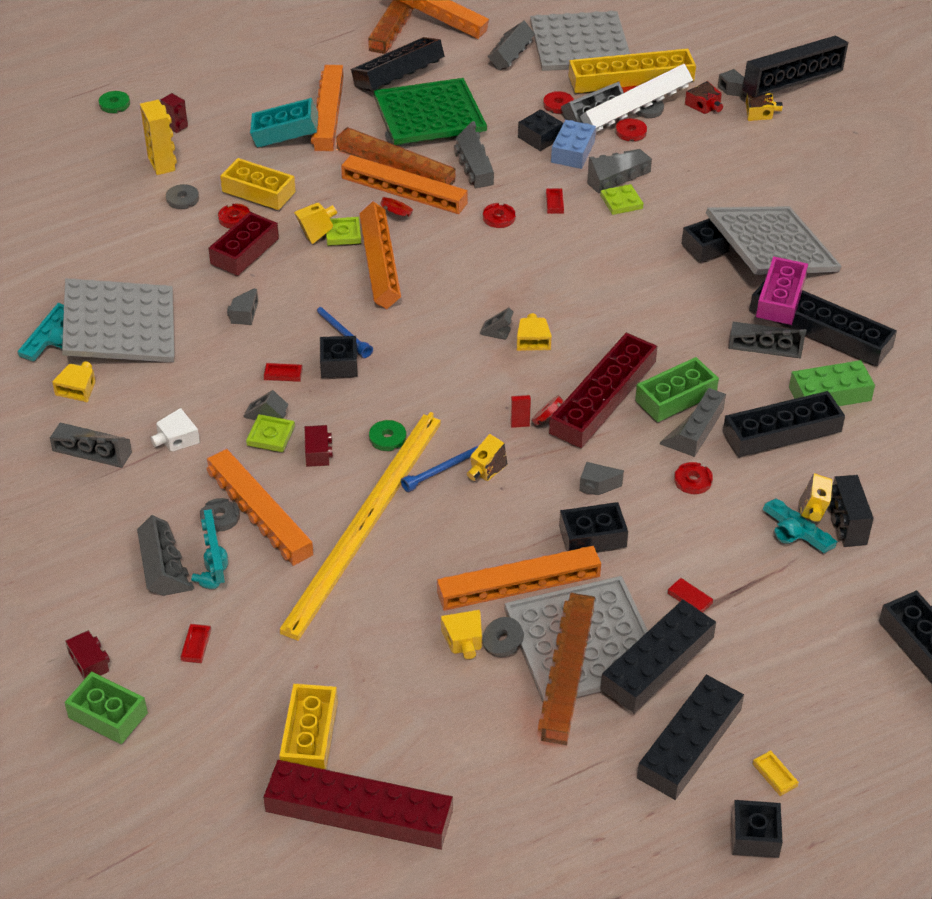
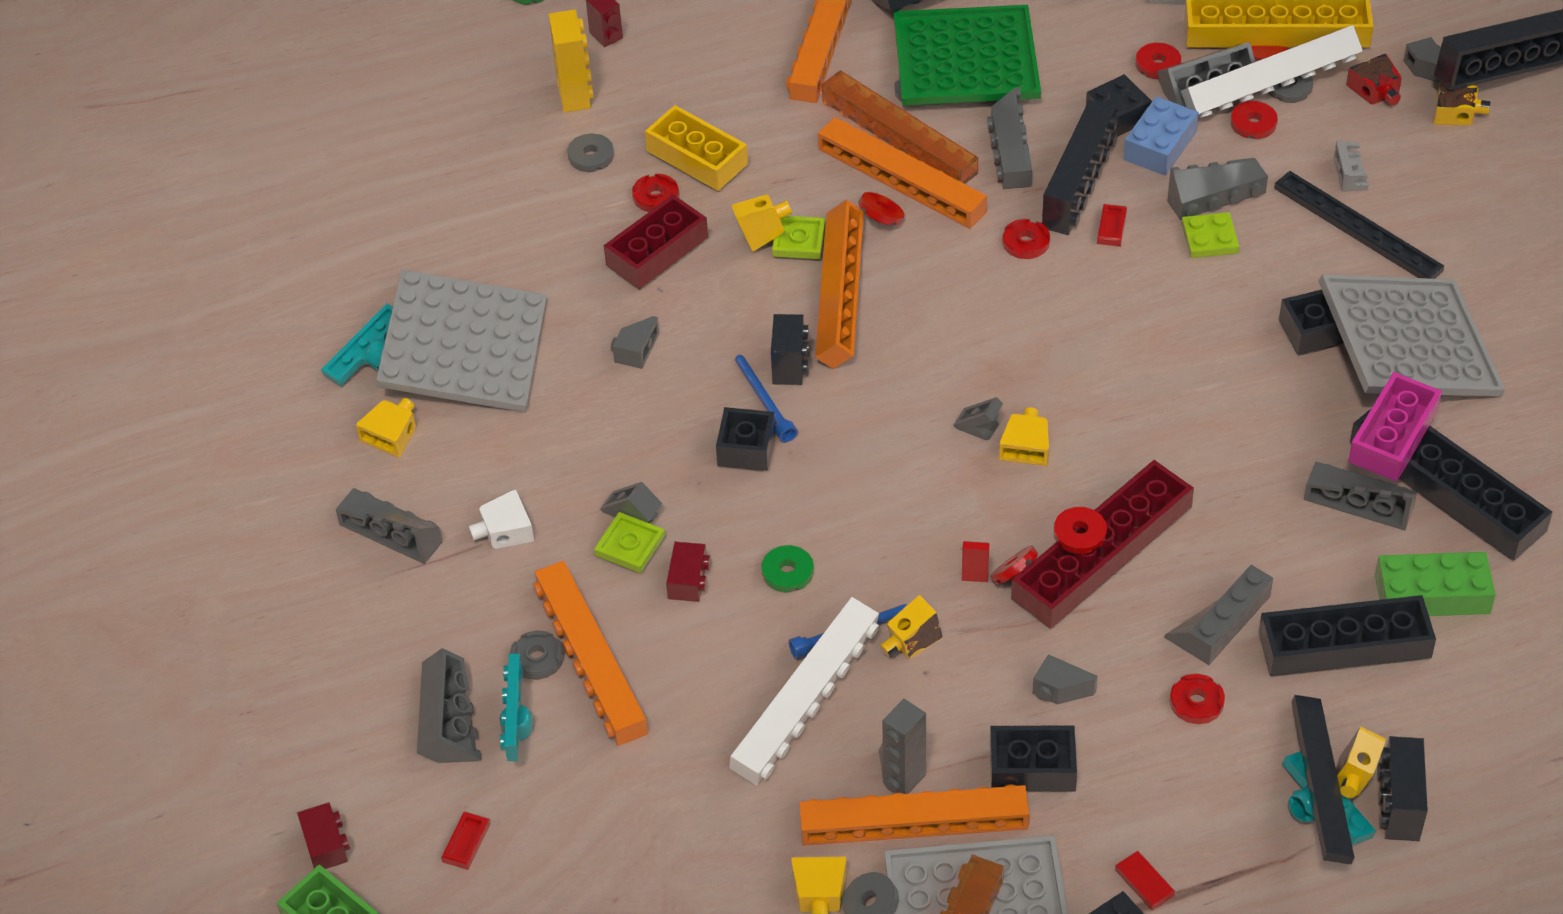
camera: 15 degrees right, 5 degrees up
(205, 580) = (493, 750): teal cylinder -> none
(283, 372) = (668, 449): red tile -> none
(284, 122) = (752, 53): teal brick -> none
(353, 537) = (705, 717): yellow piece -> none
(355, 297) = (789, 349): none -> black brick
(420, 510) = (804, 691): none -> white brick
(503, 532) = (903, 748): none -> dark grey wedge
(526, 166) = (1079, 167): none -> black brick
(588, 372) = (1084, 518): none -> red tile
(675, 389) = (1205, 557): bright green brick -> none
(701, 150) = (1350, 167): none -> light grey hinge
(716, 183) = (1358, 226): none -> black tile
(796, 512) = (1322, 780): none -> black tile

